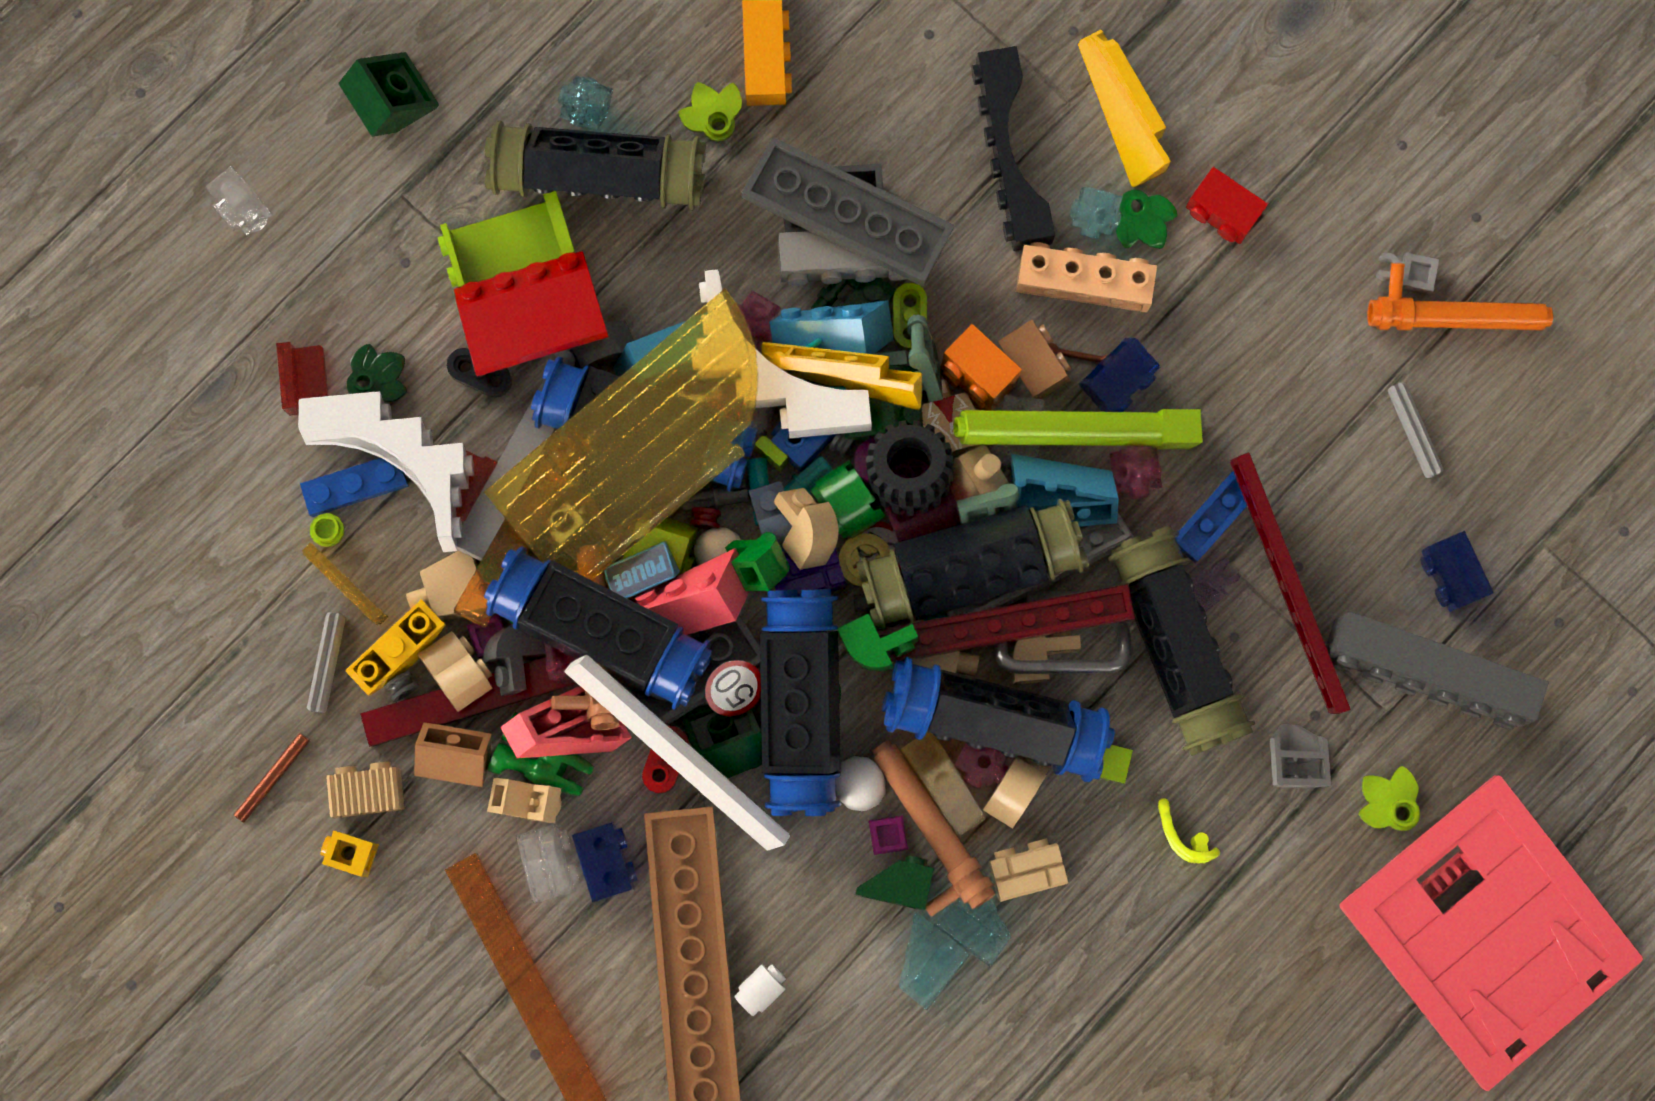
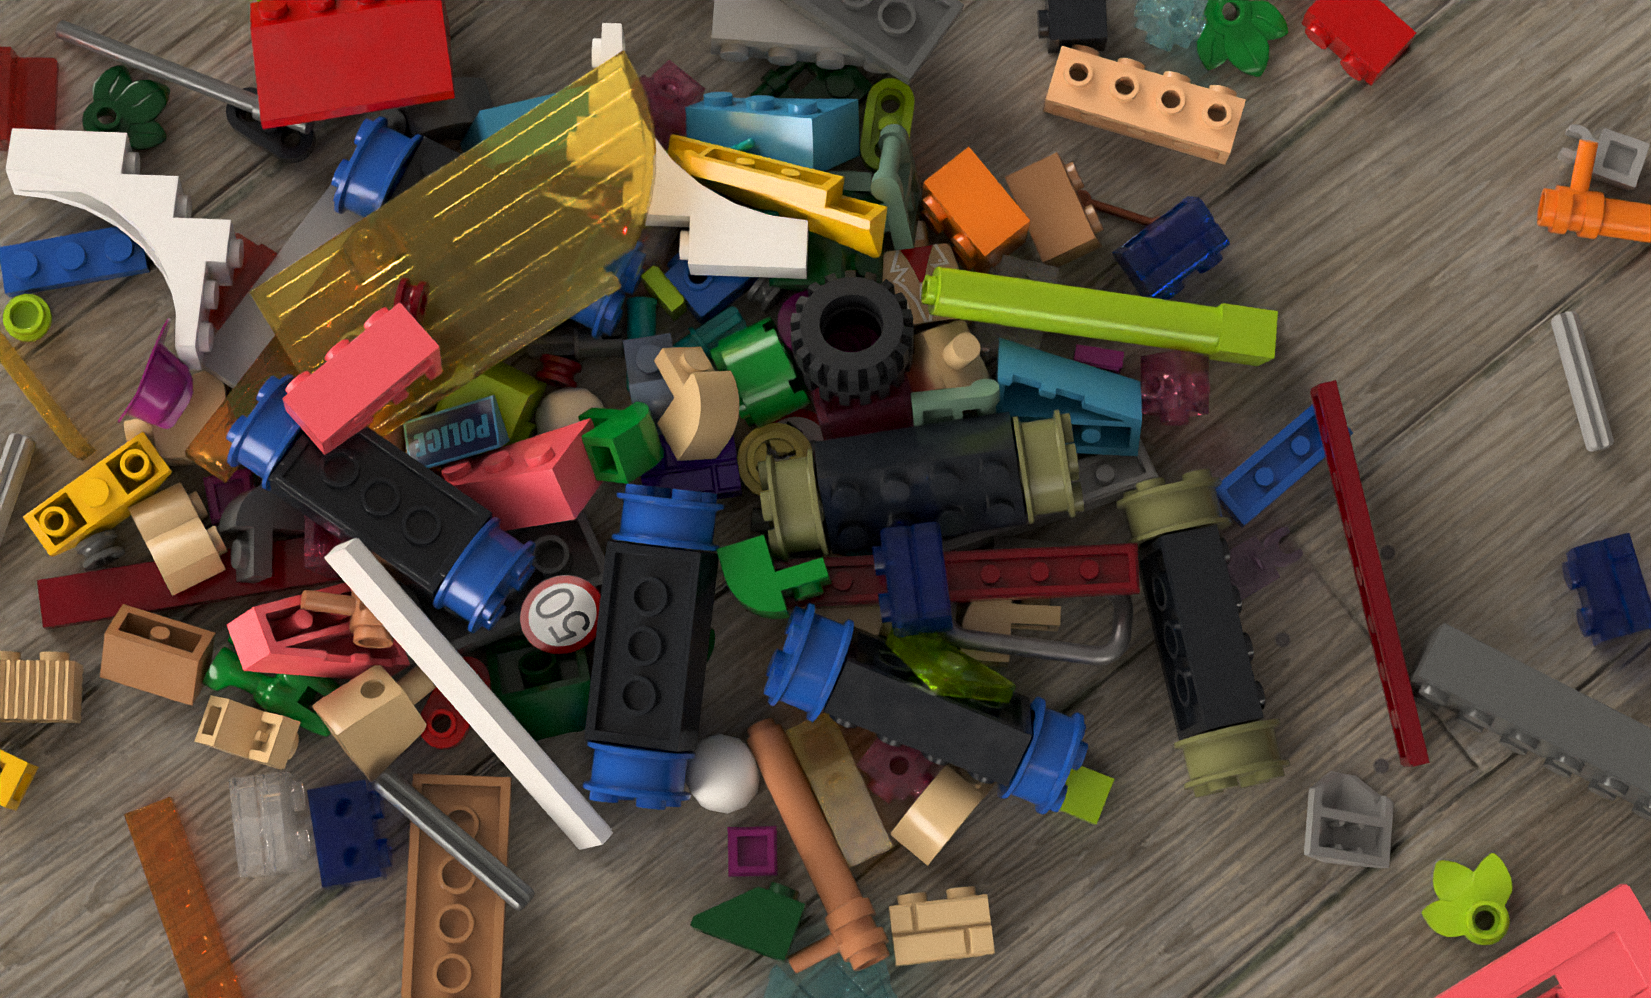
camera: 10 degrees right, 0 degrees up
(401, 343) = (166, 70): none -> dark grey bar
(432, 569) = (163, 387): none -> magenta piece
(574, 542) = (362, 377): none -> coral wedge
(599, 483) = (413, 297): none -> dark red bush
(613, 777) = (375, 716): none -> tan torso
(679, 856) = (454, 839): none -> dark grey axle
(979, 631) = (915, 580): none -> clear blue brick
(1008, 689) = (950, 669): none -> clear neon green wing
(1087, 459) = (1099, 357): none -> magenta tile
(1199, 852) = (1189, 936): neon yellow piece -> none

